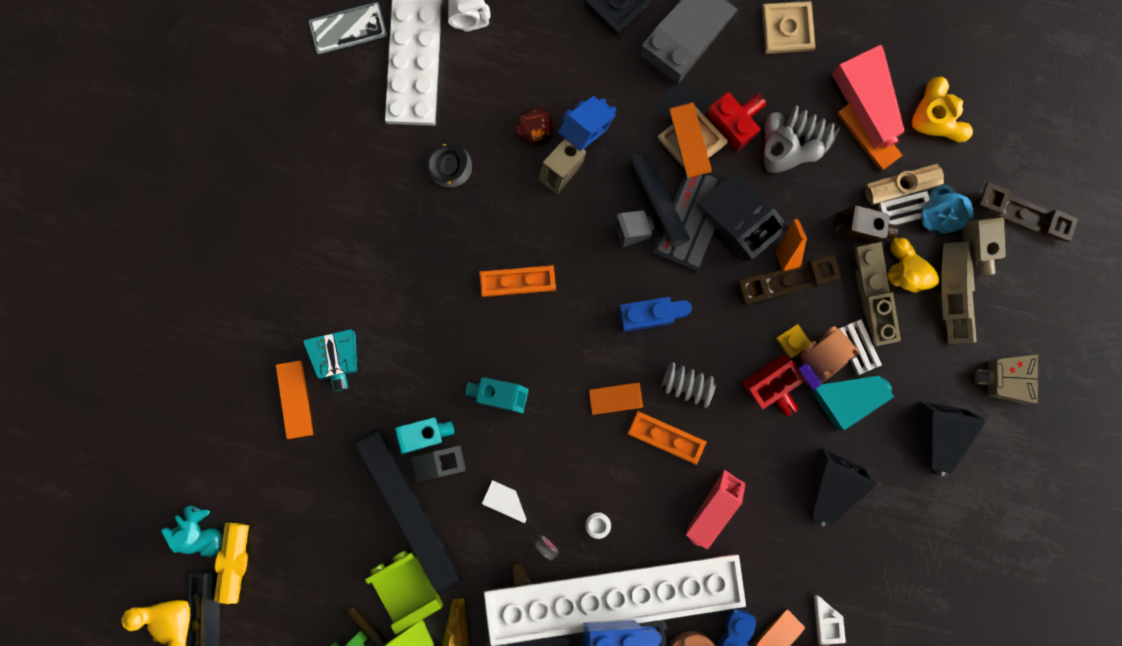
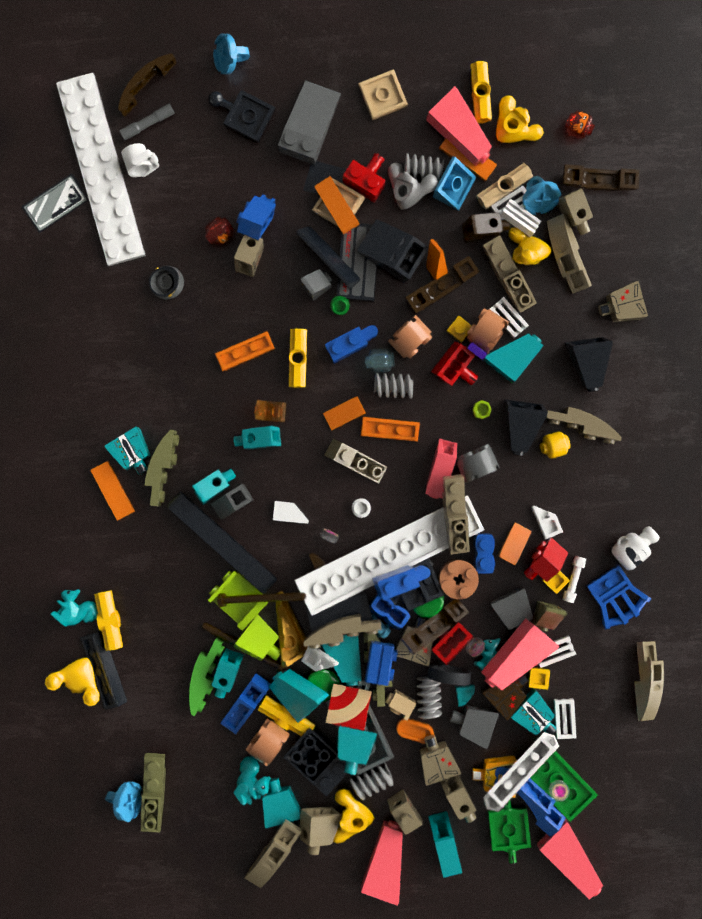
camera: 15 degrees left, 5 degrees up
(369, 380) = (161, 459): none -> olive slope
(385, 585) = (223, 599): none -> dark brown bar
(524, 365) = (270, 411): none -> clear orange bracket
(586, 296) = (298, 345): none -> yellow piece
(610, 463) = (355, 460): none -> dark tan slope
(653, 263) = (339, 305): none -> green plate
(682, 348) = (380, 360): none -> clear light blue head
(715, 575) = (455, 514): none -> dark tan slope
(729, 332) = (410, 337): none -> nougat brick
(764, 519) = (477, 463): none -> dark grey brick
(789, 451) = (481, 409): none -> lime tile
(842, 162) = (454, 184): none -> dark azure slope
(870, 527) = (555, 444): none -> yellow head
(912, 49) = (480, 81): none -> yellow piece
(912, 229) = (520, 218): none -> white tile
(921, 516) = (590, 425): none -> dark tan slope
(1019, 140) = (579, 124): none -> clear red head

